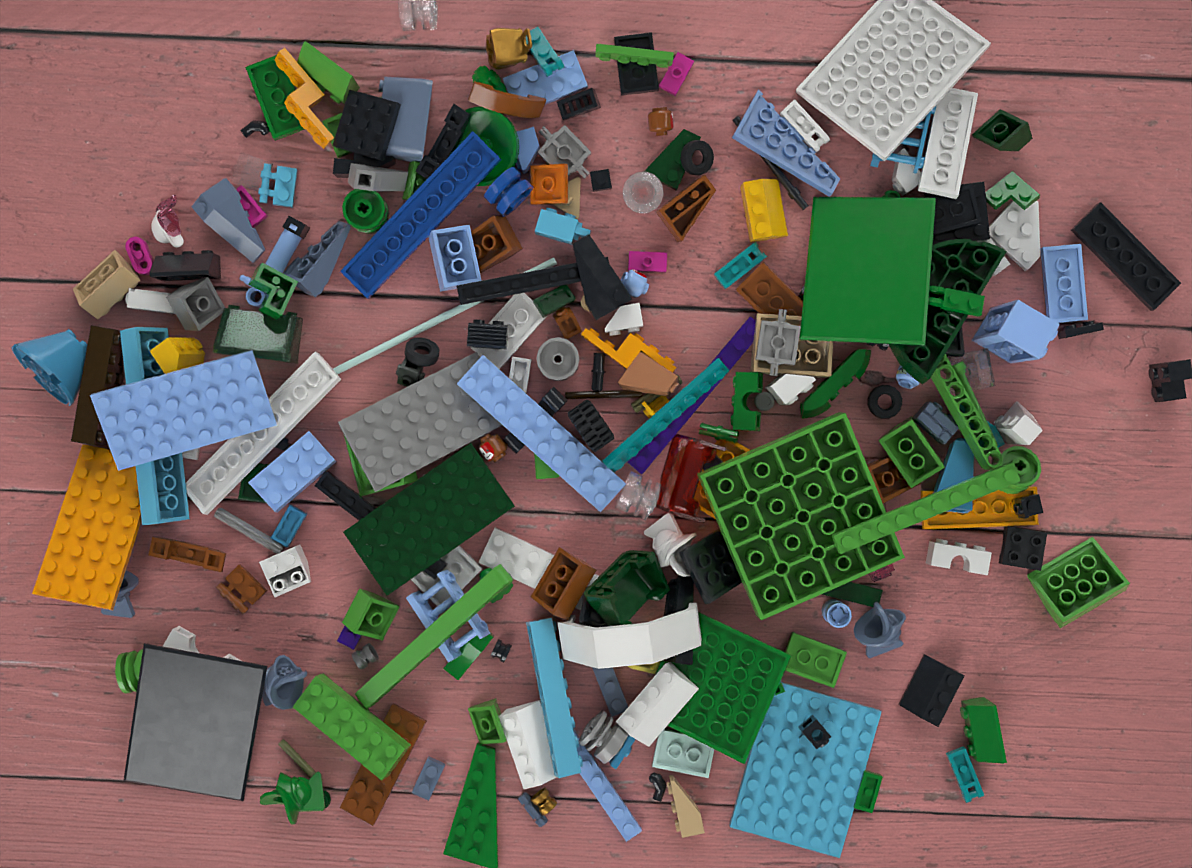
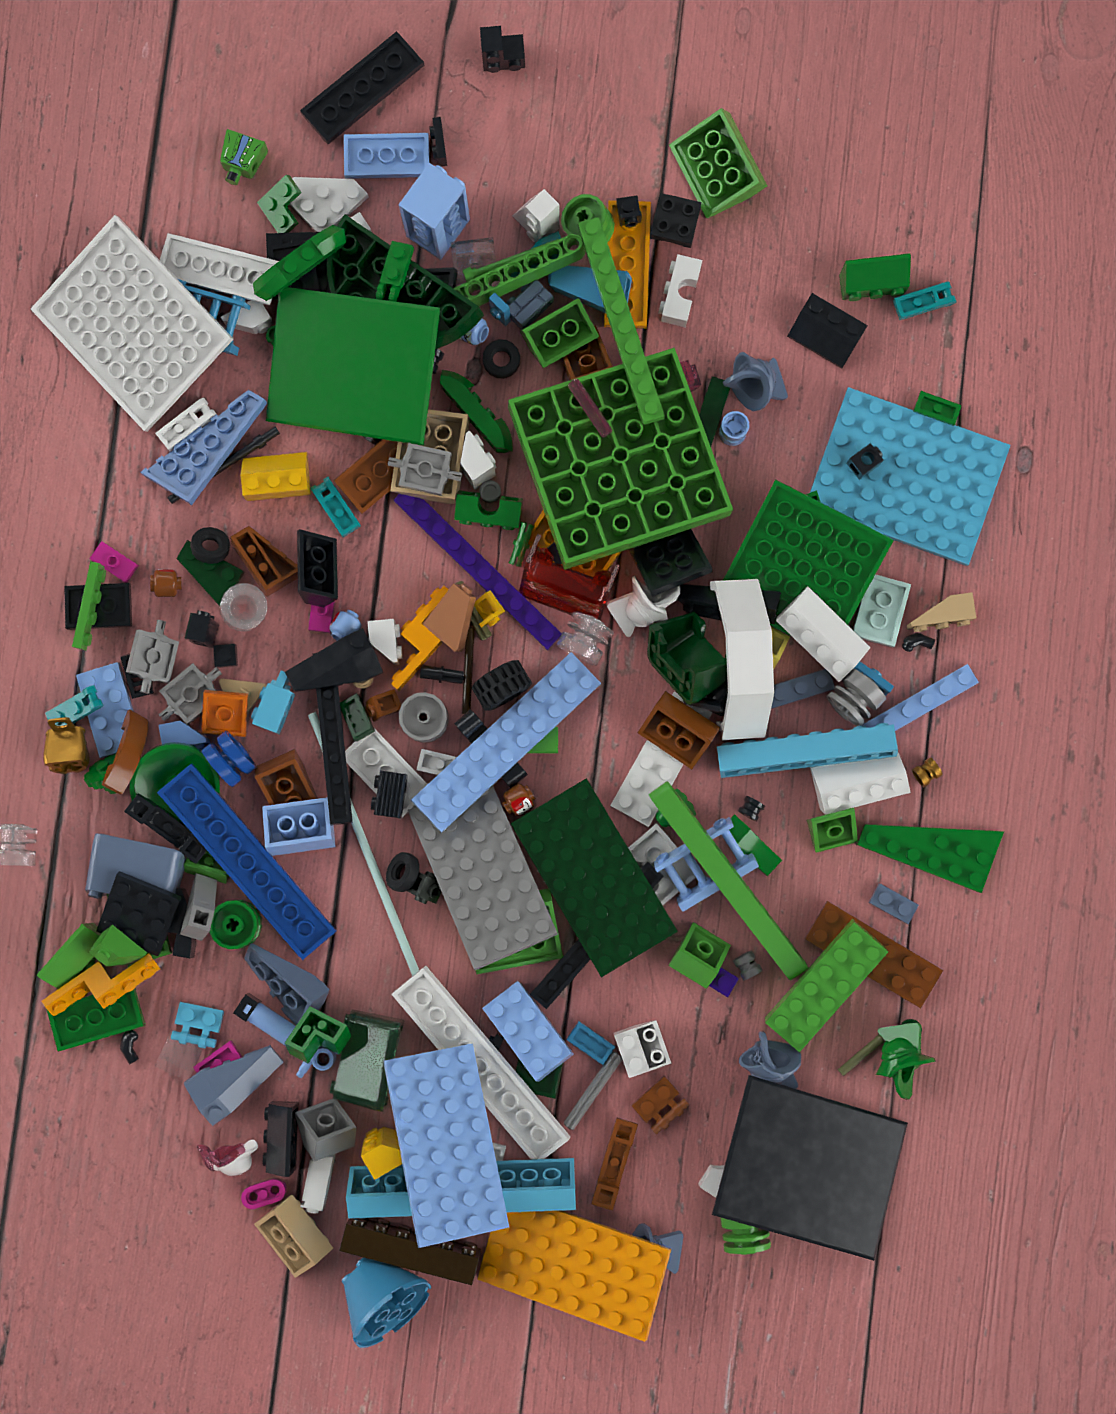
camera: 85 degrees left, 5 degrees down
(334, 107) = (116, 948): none -> bright green slope
(532, 809) = (936, 786): sand blue axle -> none
(594, 116) = (152, 656): none -> light grey plate
(621, 157) = (201, 629): none -> black brick
(666, 415) = (497, 601): teal plate -> none
(682, 254) = (317, 568): none -> black slope
(814, 659) = (785, 456): bright green plate -> none
(843, 486) = (590, 408): none -> clear pink axle
(929, 397) = (499, 309): none -> dark azure plate
(958, 214) = (299, 262): none -> green brick
(1004, 132) = (213, 207): dark green slope -> none
(1054, 153) = (241, 156): none -> bright green torso

